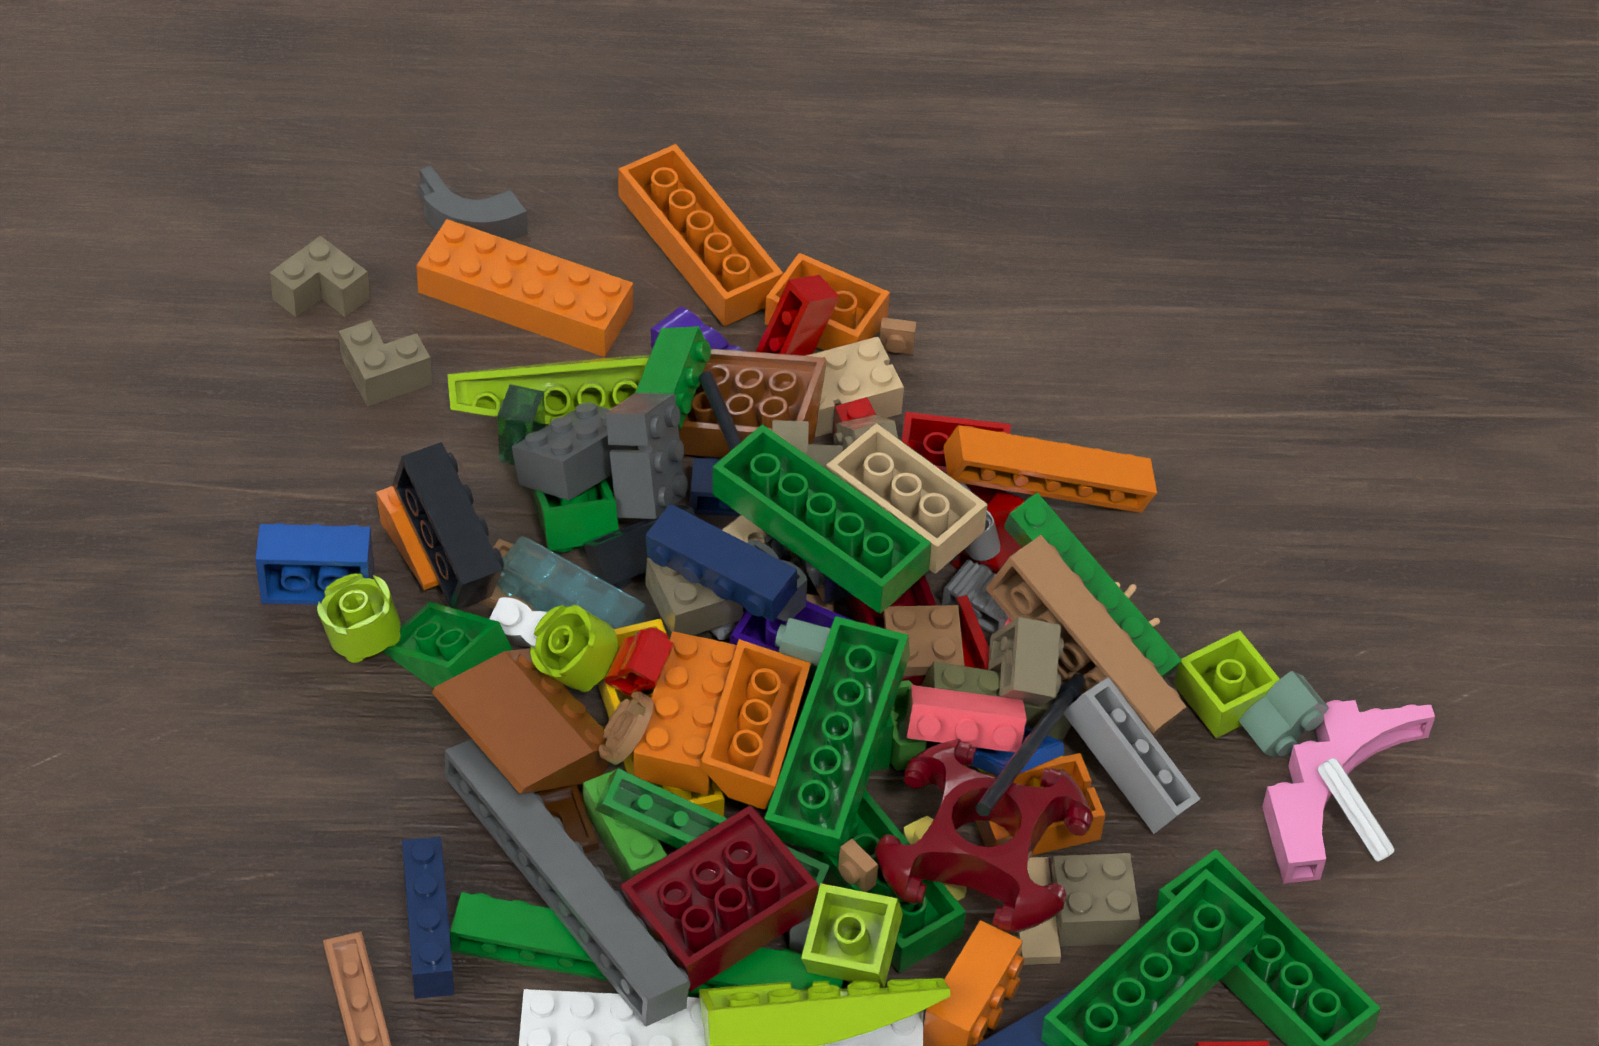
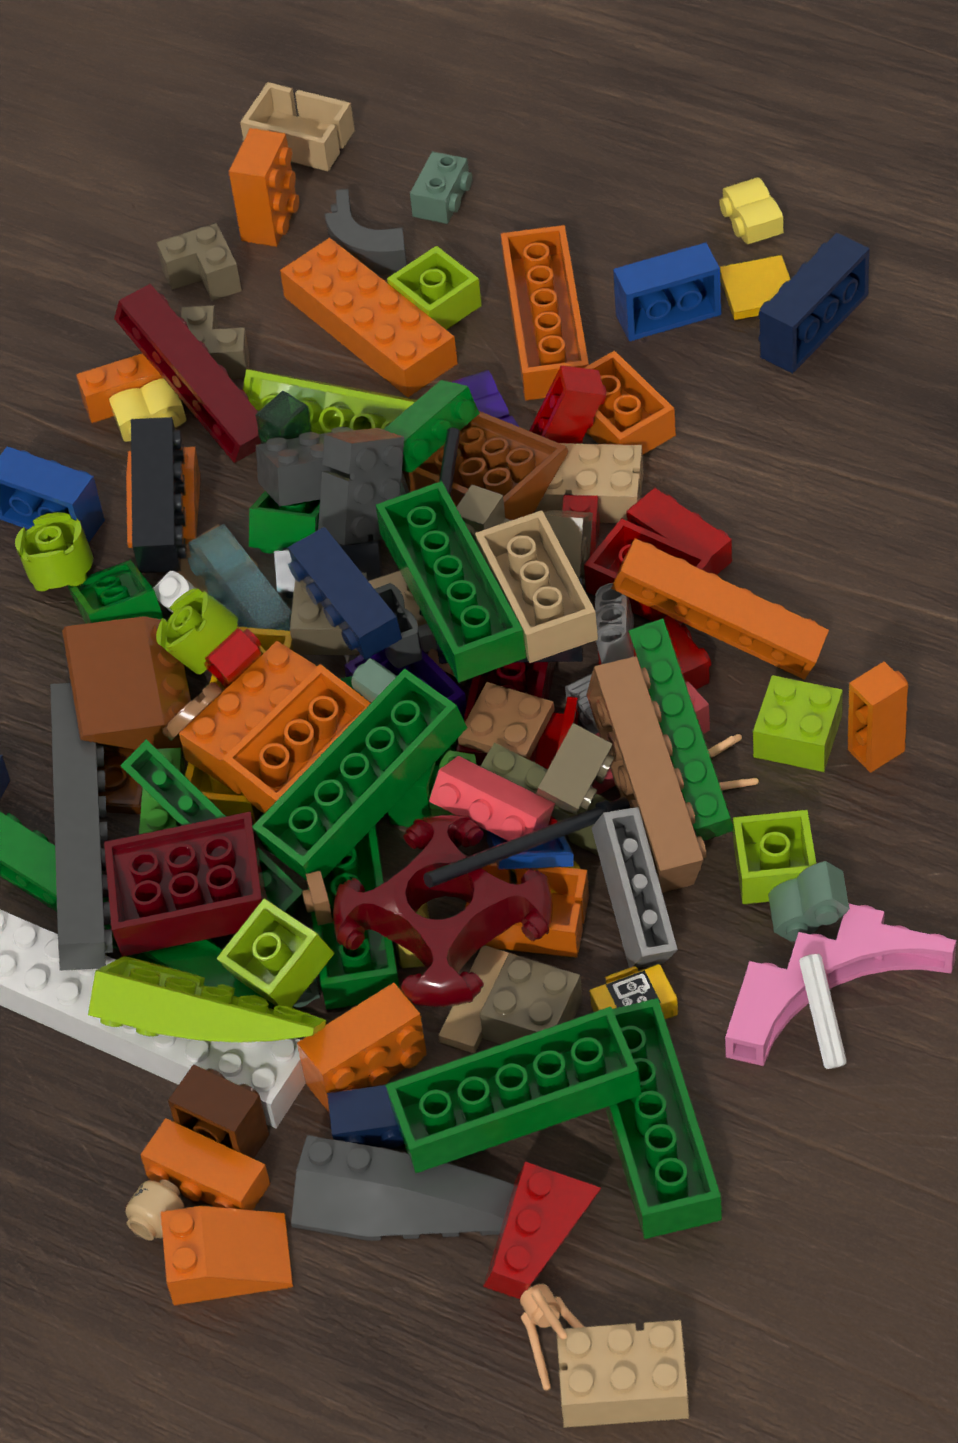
camera: 35 degrees right, 0 degrees up
(324, 424) = (107, 380): none -> orange brick
(347, 124) = (315, 135): none -> tan piece
(352, 185) = (263, 187): none -> orange brick
(357, 445) = (150, 401): none -> light yellow brick
(396, 392) = (190, 371): none -> dark red brick
(516, 139) = (440, 187): none -> sand green brick
(583, 236) = (438, 287): none -> lime brick
(807, 182) = (667, 291): none -> blue brick
(831, 82) = (752, 211): none -> light yellow brick
(877, 155) = (752, 284): none -> yellow tile
(898, 335) = (670, 452): medium nougat plate -> none
(943, 399) = (671, 520): none -> red brick
(948, 155) = (814, 302): none -> dark blue brick
(1170, 554) = (797, 723): none -> lime brick
(1174, 855) = (635, 987): none -> piece
(1250, 524) = (877, 716): none -> orange brick

